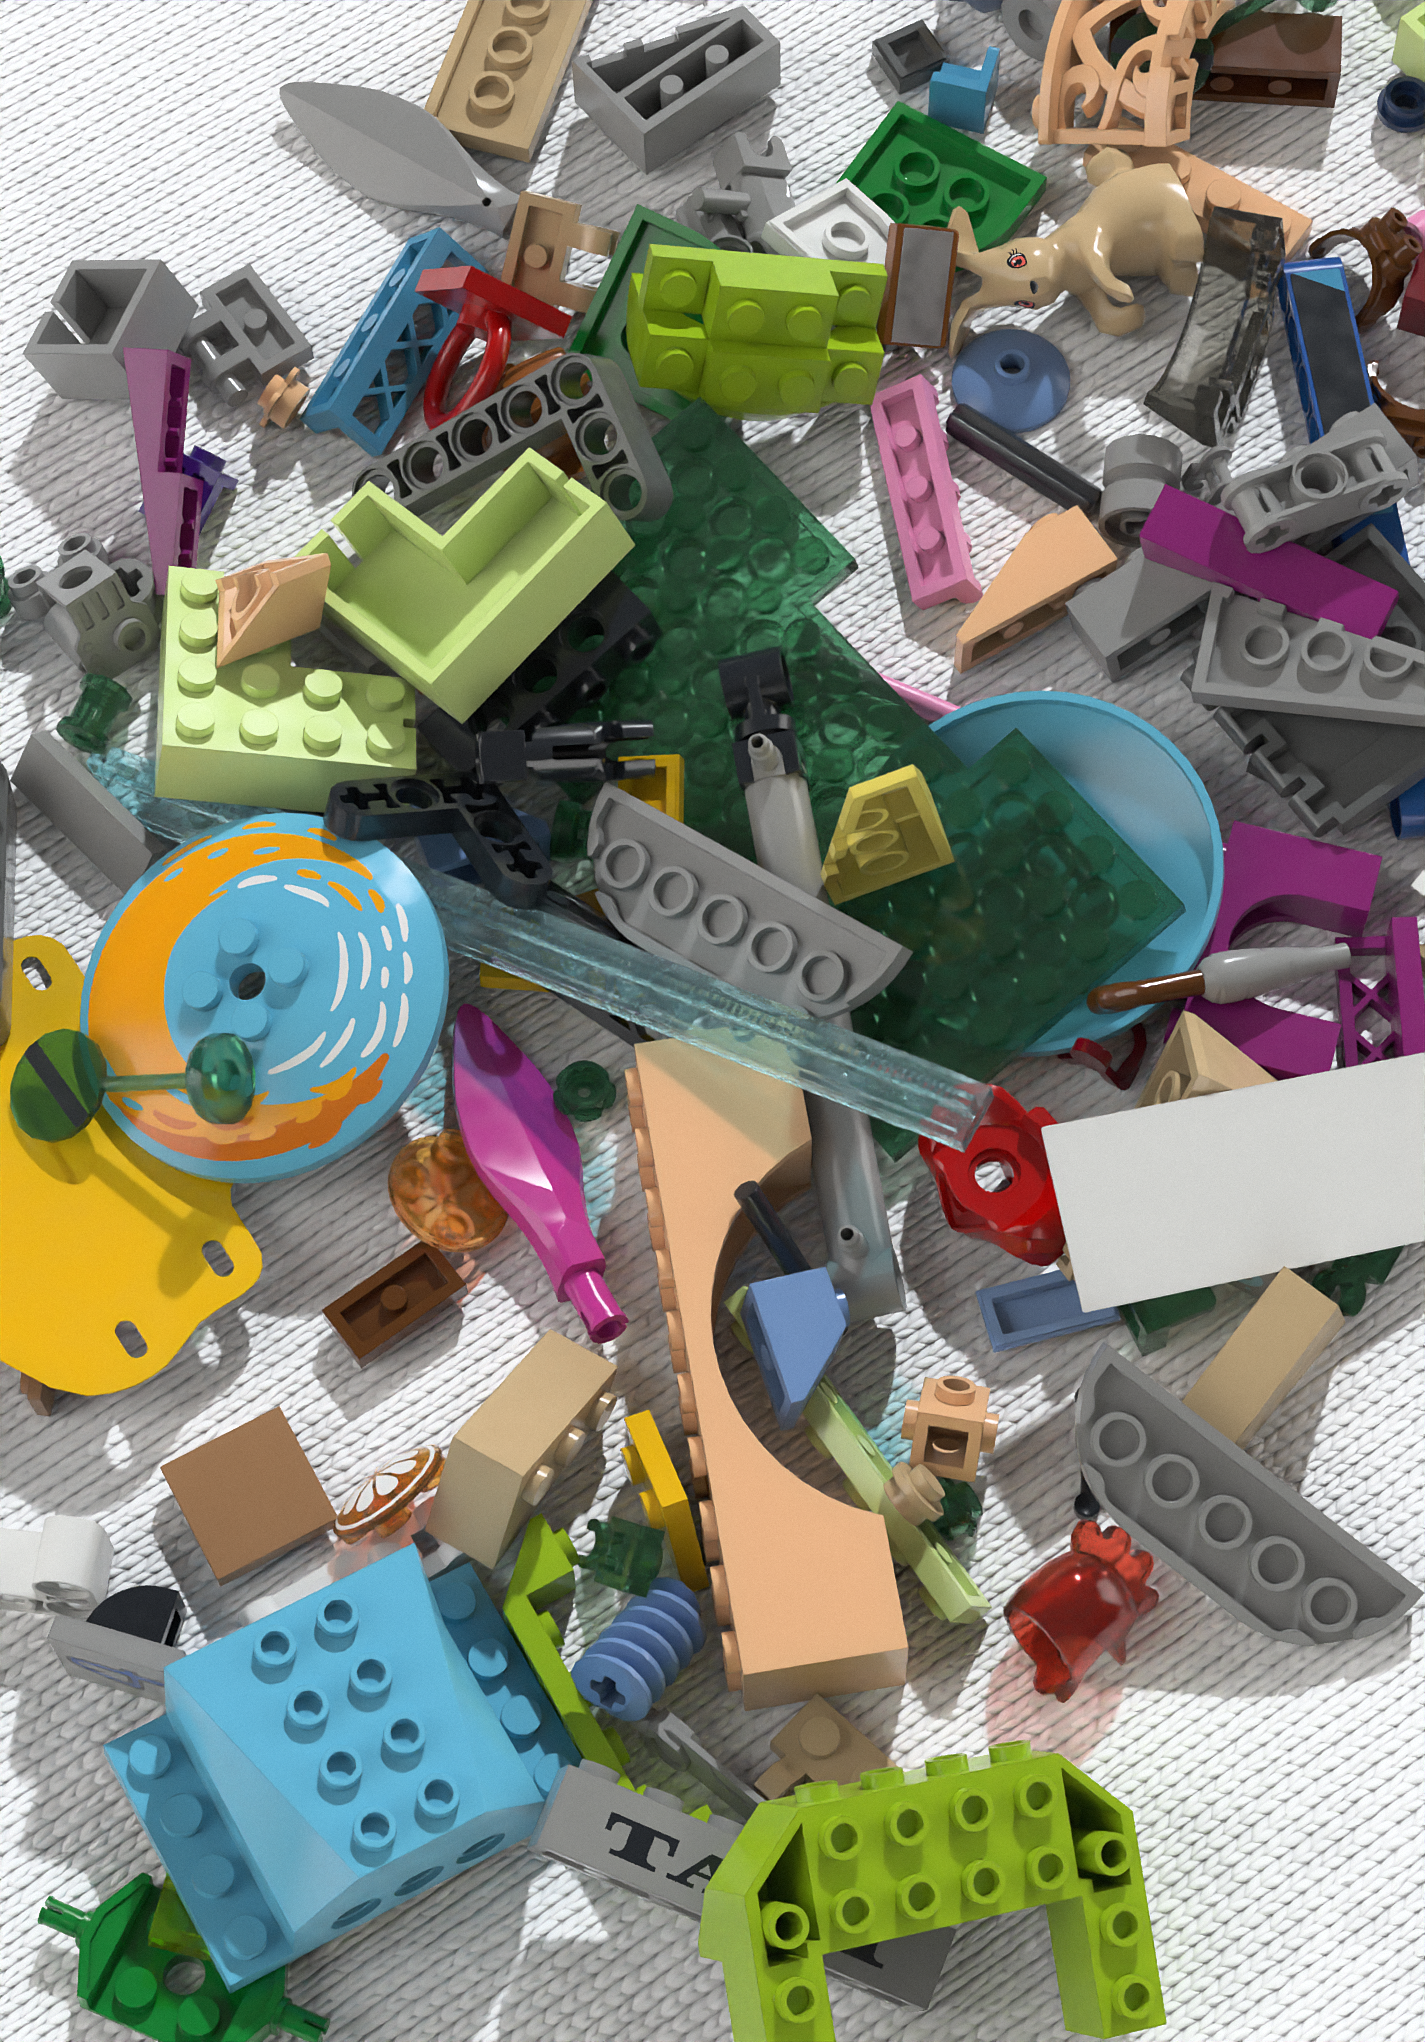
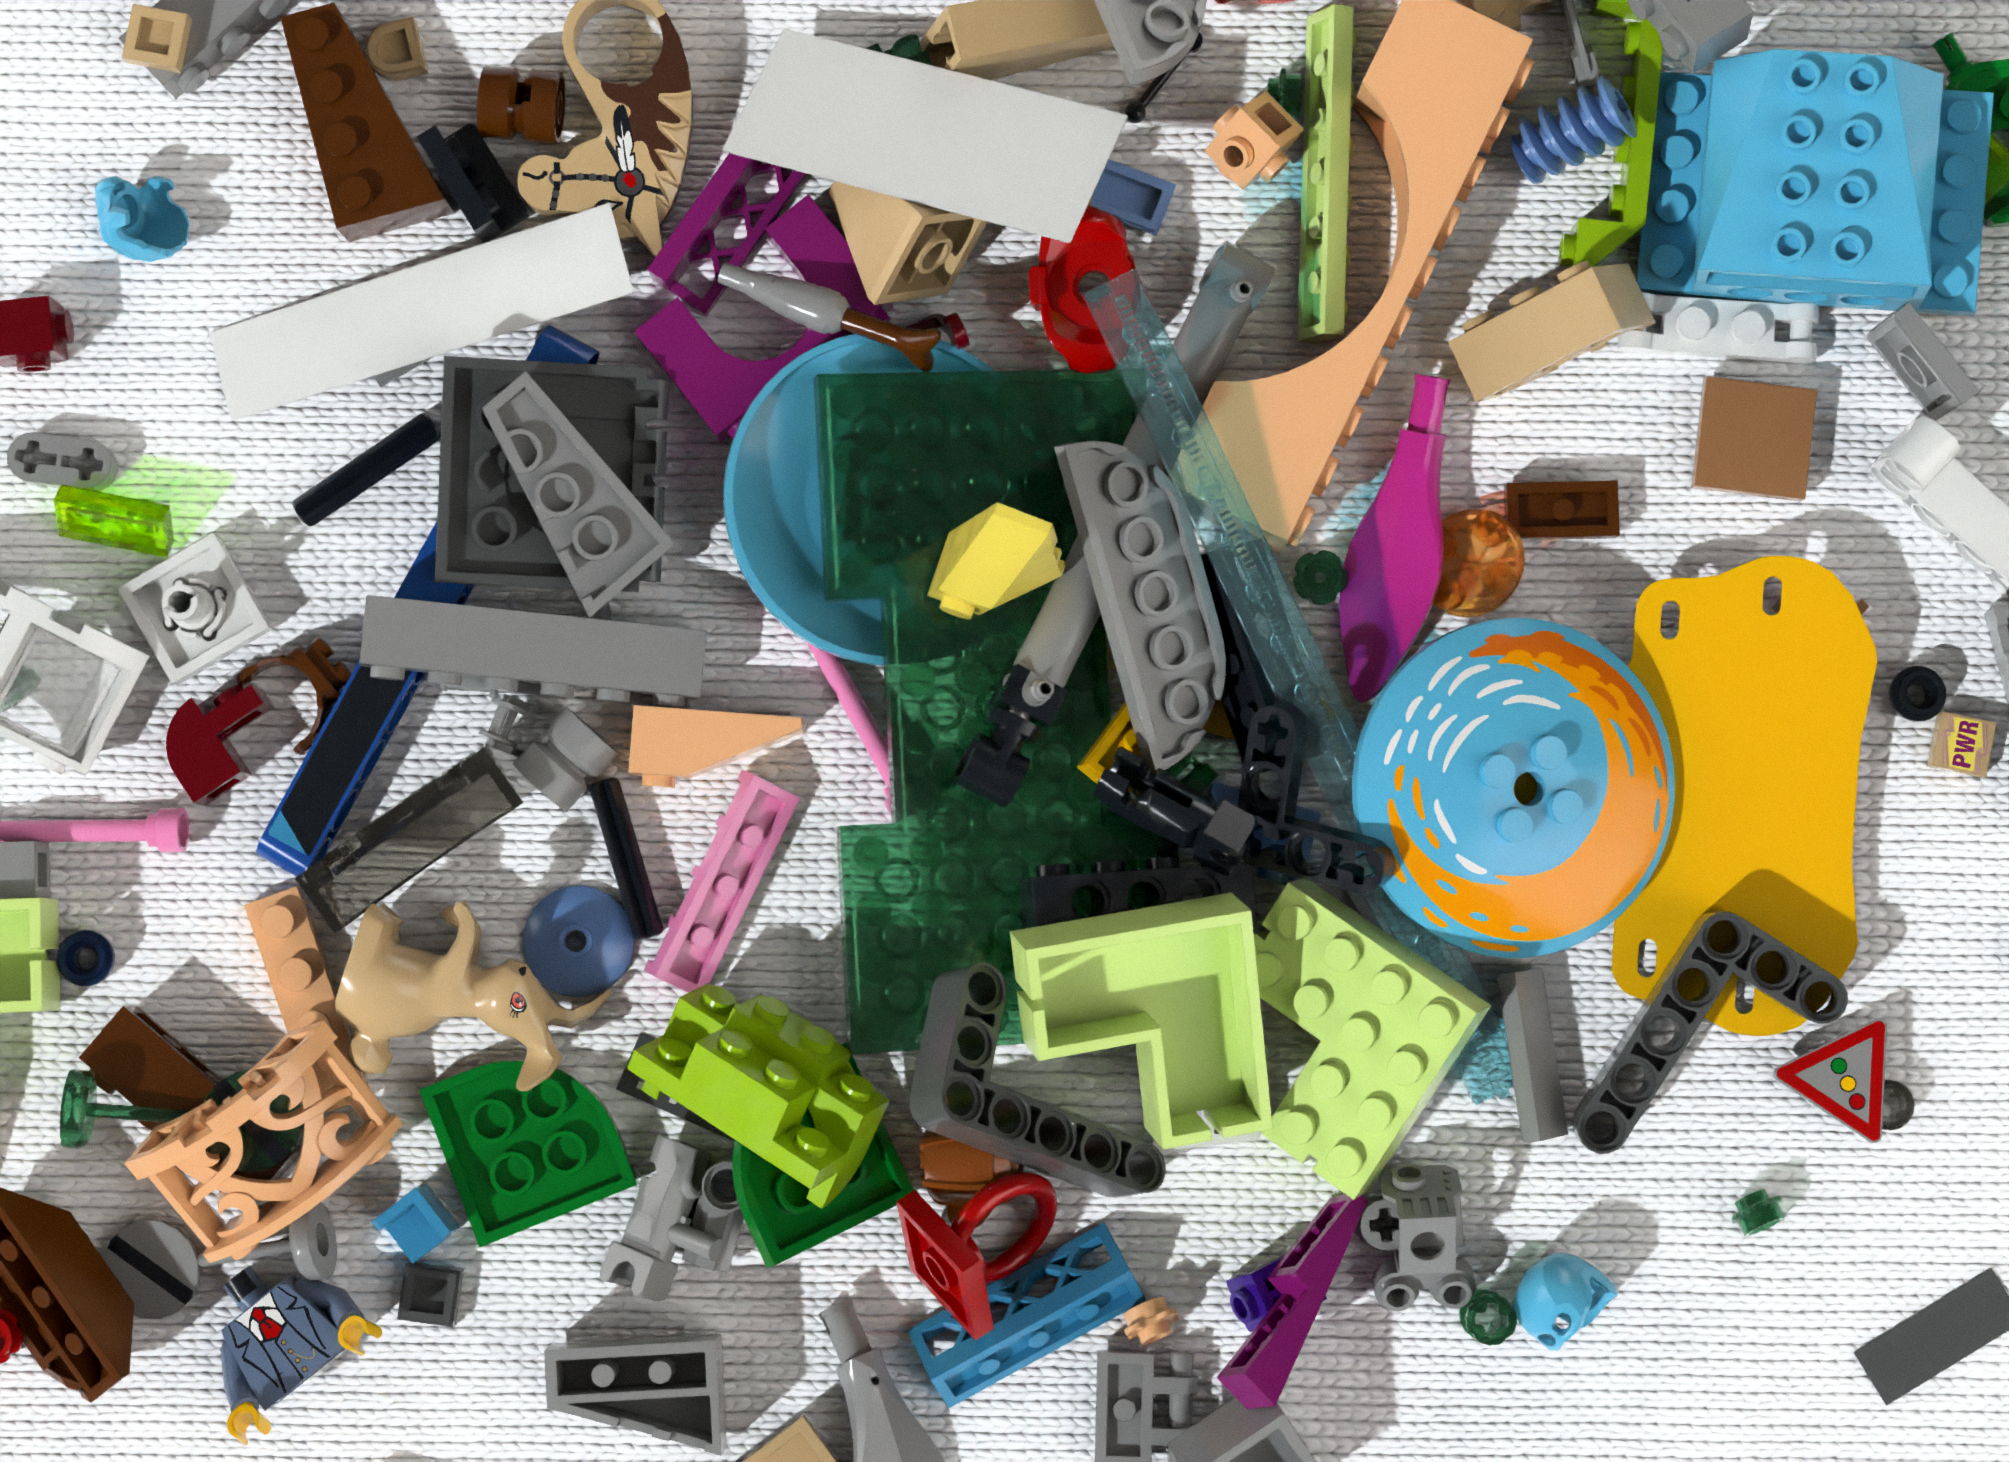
camera: 145 degrees left, 20 degrees up
(66, 1077) = (1701, 821): clear green piece -> none
(97, 694) = (1473, 1140): clear green bush -> none
(143, 1612) = (1891, 396): black brick -> none
(270, 604) = (1311, 1100): light nougat slope -> none
(386, 1491) = (1665, 359): clear orange dish -> none
(542, 246) = (867, 1302): tan plate -> none
(624, 1555) = (1535, 202): clear green plate -> none
(664, 1498) = (1487, 217): yellow wing -> none
(771, 1229) = (1283, 327): black bar -> none
(794, 1336) = (1323, 254): medium blue slope -> none
(832, 226) = (629, 1136): white tile -> none
(915, 1493) = (1316, 103): tan plate -> none
(918, 285) = (598, 1052): flat silver slope -> none
(1211, 546) = (543, 594): magenta slope -> none
(1279, 508) = (432, 604): light grey piece -> none
(1390, 256) = (217, 827): reddish brown helmet -> none

